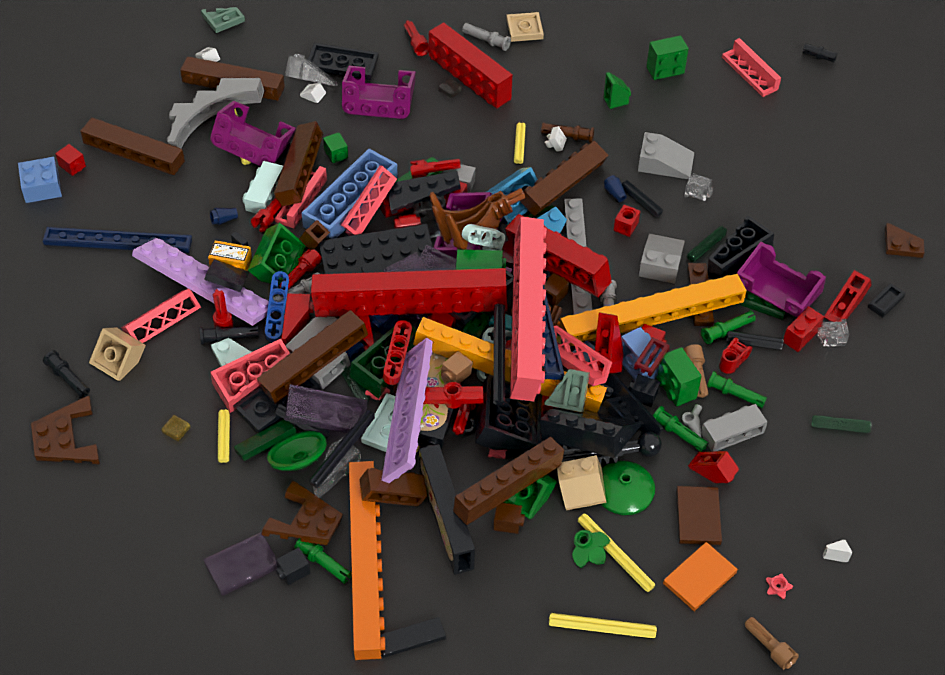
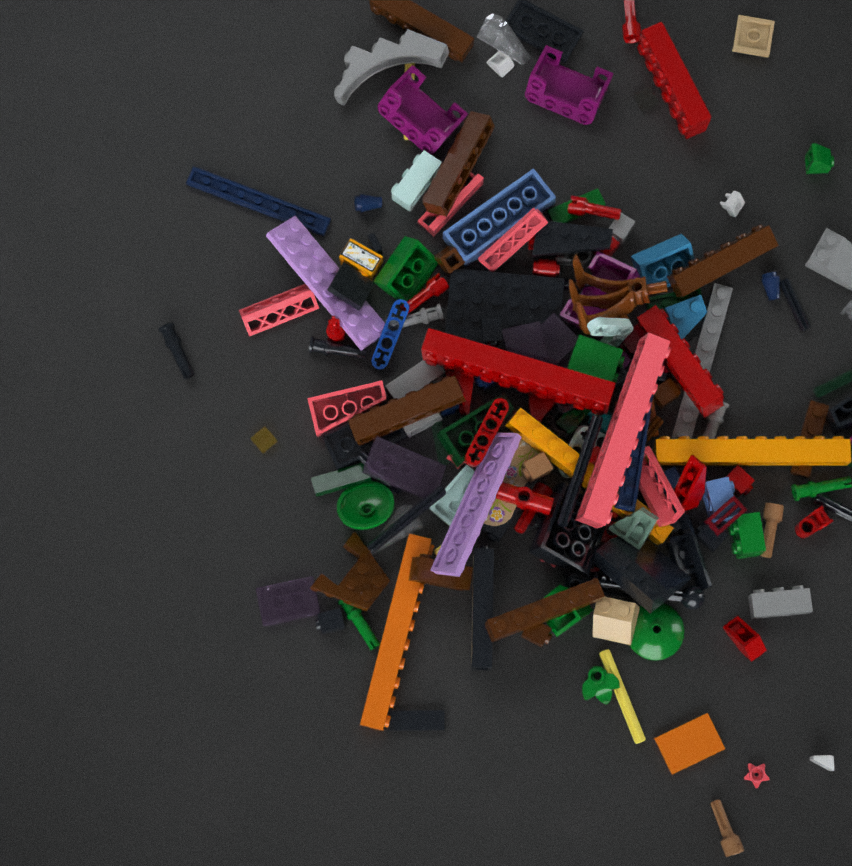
camera: 20 degrees right, 25 degrees up
(39, 179) = (197, 105): medium blue brick -> none
(55, 436) = (153, 416): reddish brown wing -> none
(70, 159) = (233, 87): red brick -> none
(116, 353) = (228, 340): tan slope -> none
(132, 146) = (299, 86): reddish brown brick -> none
(223, 435) = (304, 463): light yellow axle -> none
(228, 351) = (335, 374): light aqua wing -> none
(265, 217) = (408, 217): red piece -> none
(296, 315) = (406, 349): red slope -> none
(335, 147) = (502, 149): green brick -> none
(492, 38) = (713, 43): light grey pin -> none
(519, 143) = (694, 195): light yellow axle -> none
(575, 132) = (757, 200): reddish brown pin -> none
(602, 625) = (584, 763): light yellow axle -> none
(626, 220) = (765, 337): red brick -> none
(661, 258) = (787, 384): light grey slope -> none
(672, 424) = (723, 579): green pin -> none
(692, 419) = (745, 581): light grey animal -> none
(699, 515) = (712, 682): reddish brown tile -> none
(727, 386) = (793, 555): green pin -> none

